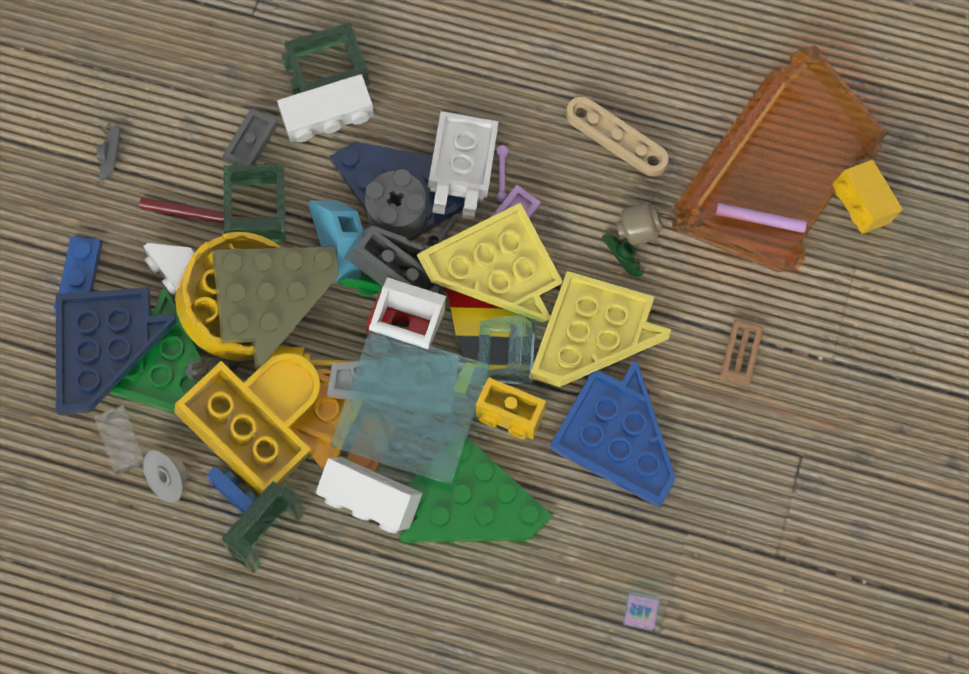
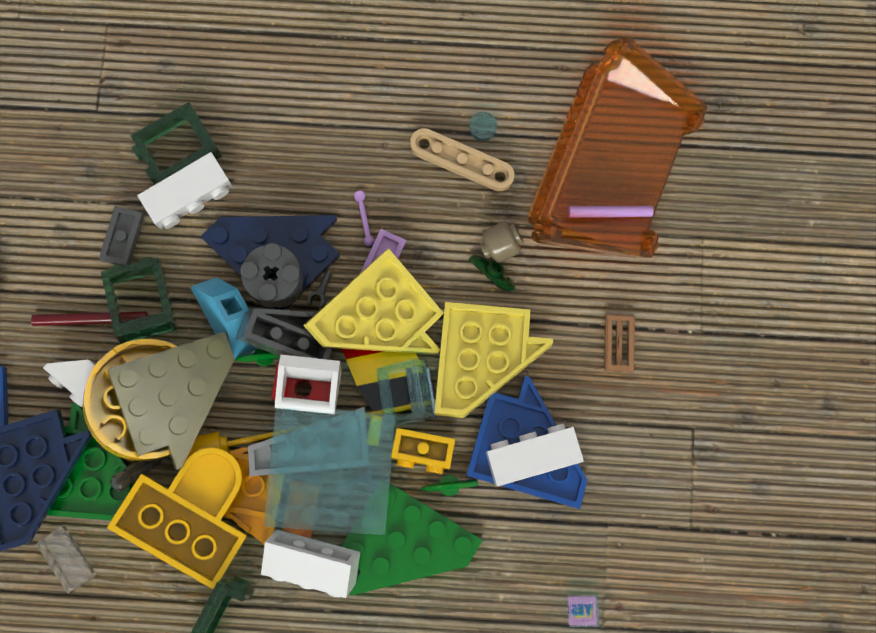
camera: 15 degrees left, 10 degrees up
(165, 475) = (117, 585): light grey piece -> none
(227, 484) = (176, 582): blue plate -> none
(462, 160) = (325, 215): white tile -> none
(530, 454) = (450, 485): none -> green piece
(624, 437) = (534, 455): none -> white brick
(646, 109) = (483, 126): none -> clear light blue tile
(867, 196) = (702, 170): yellow brick -> none

